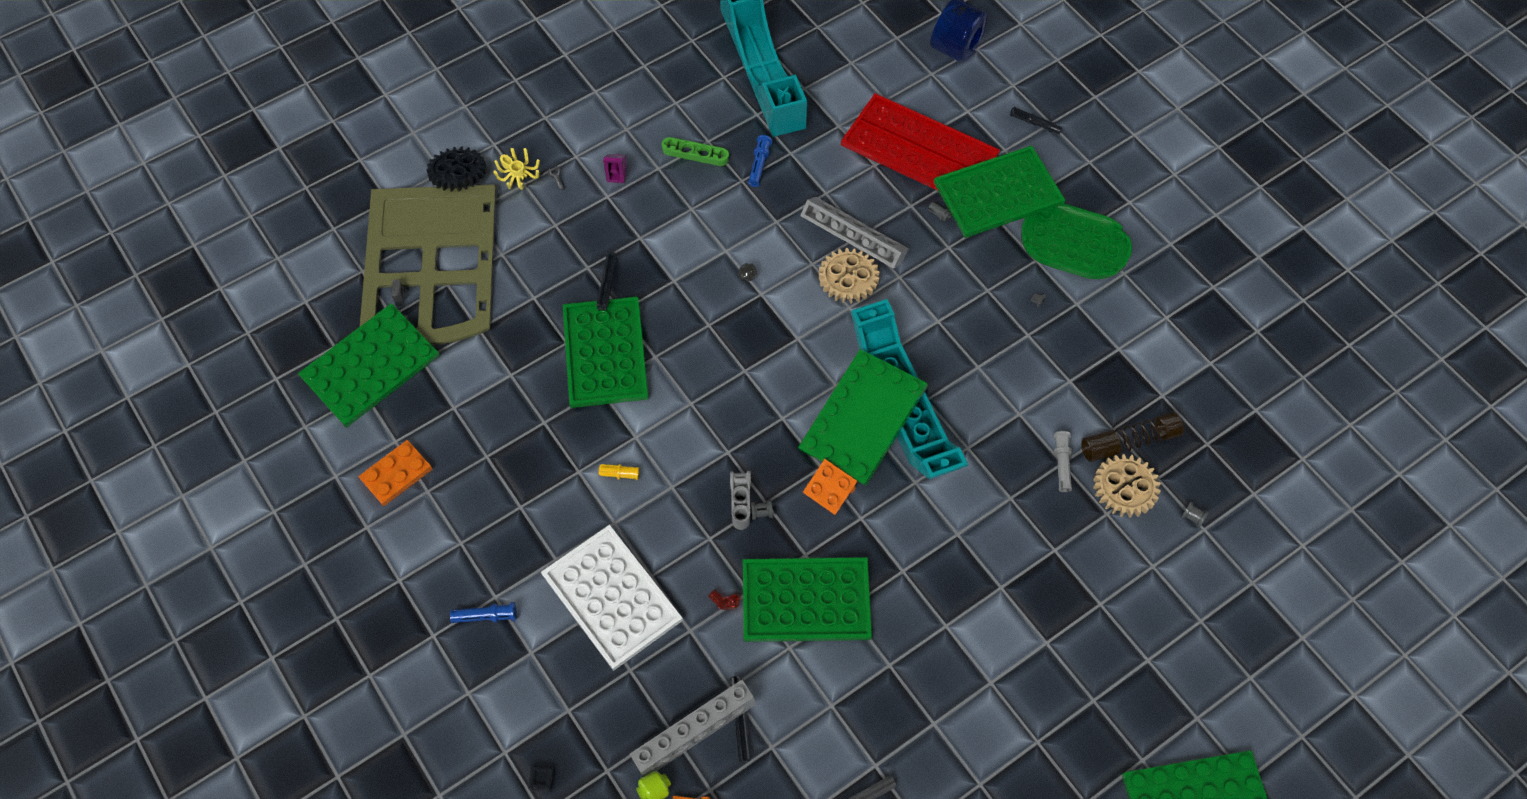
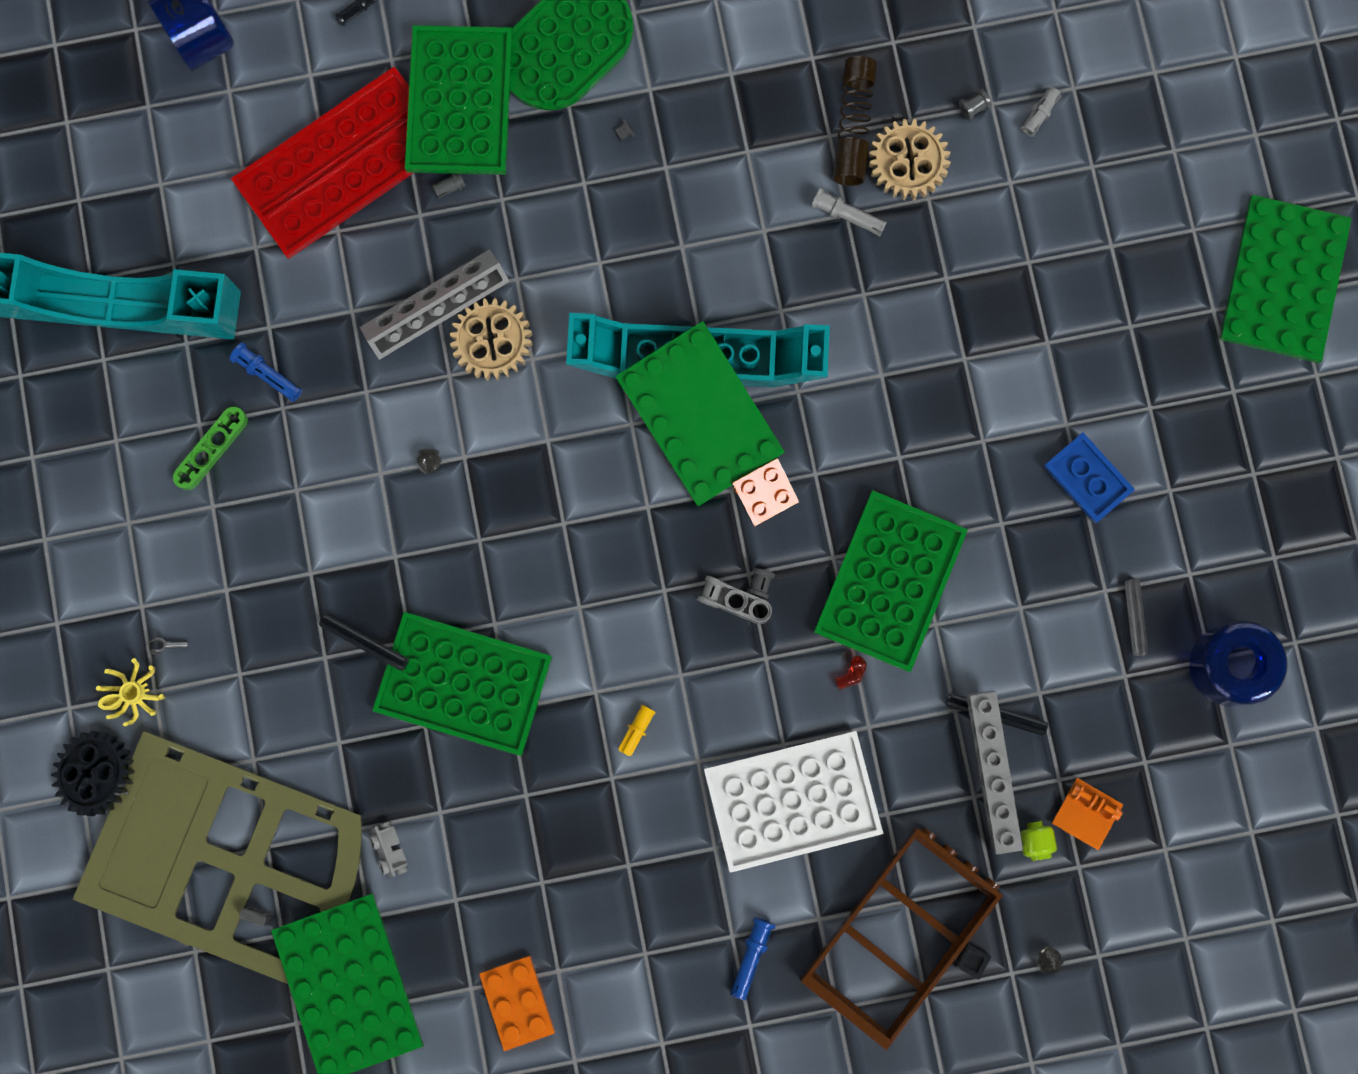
camera: 60 degrees left, 20 degrees up
(472, 691) = (849, 1009): none -> reddish brown window
(477, 346) = (382, 842): none -> light grey hinge
(615, 168) = (190, 562): magenta slope -> none
(957, 713) = (1089, 478): none -> blue plate
(1218, 563) = (1041, 111): none -> light grey pin

